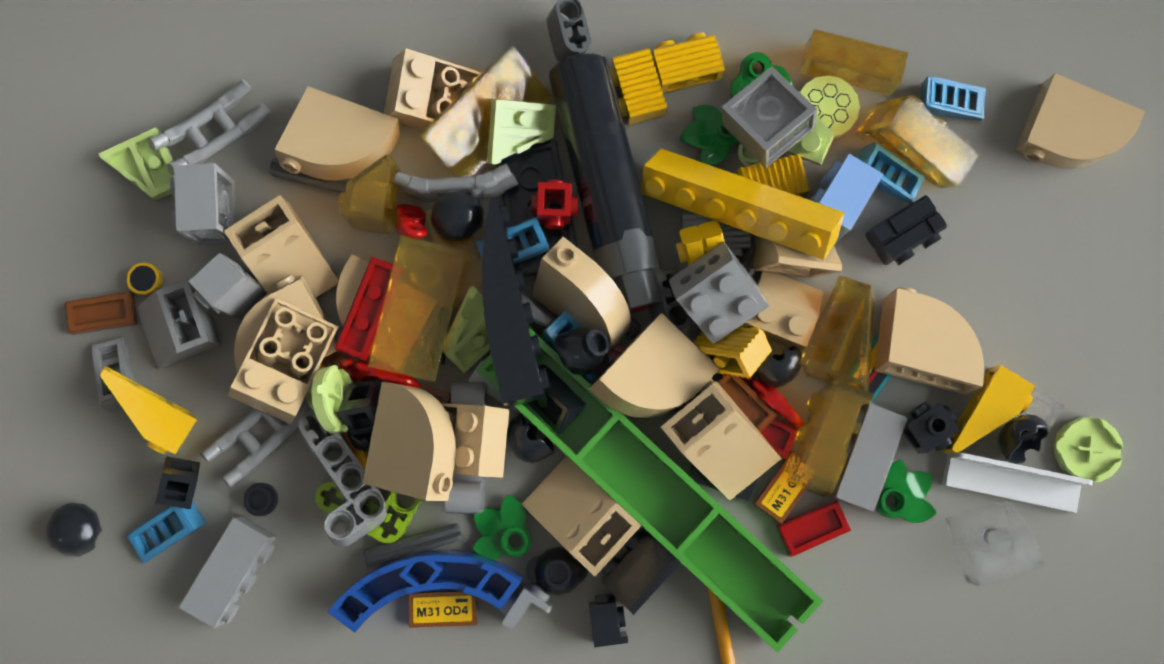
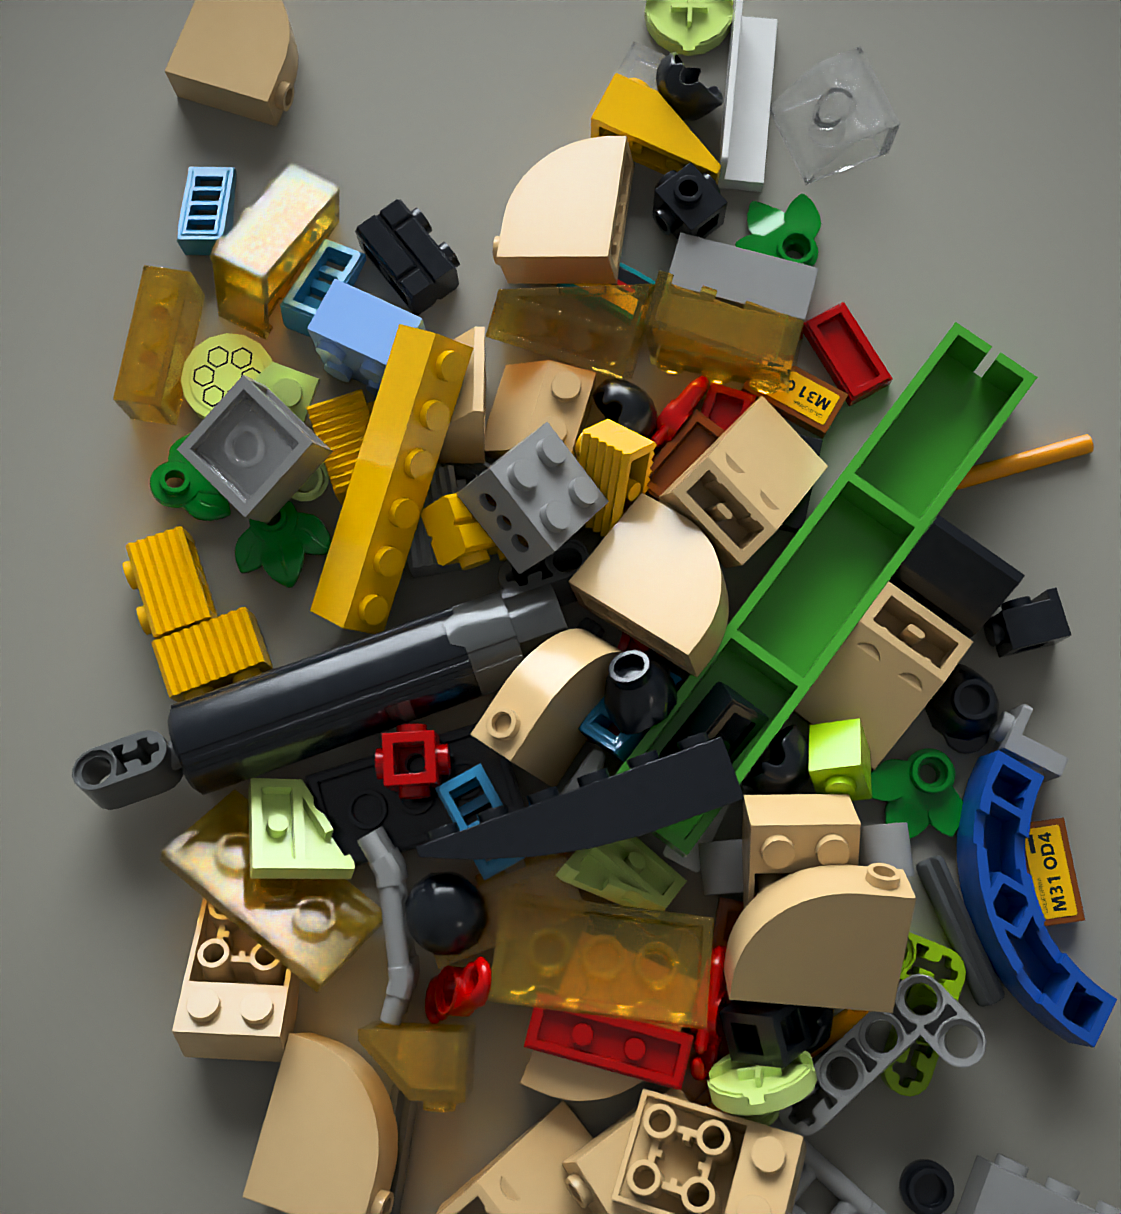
camera: 90 degrees left, 5 degrees down
(527, 478) = (840, 759): none -> lime brick

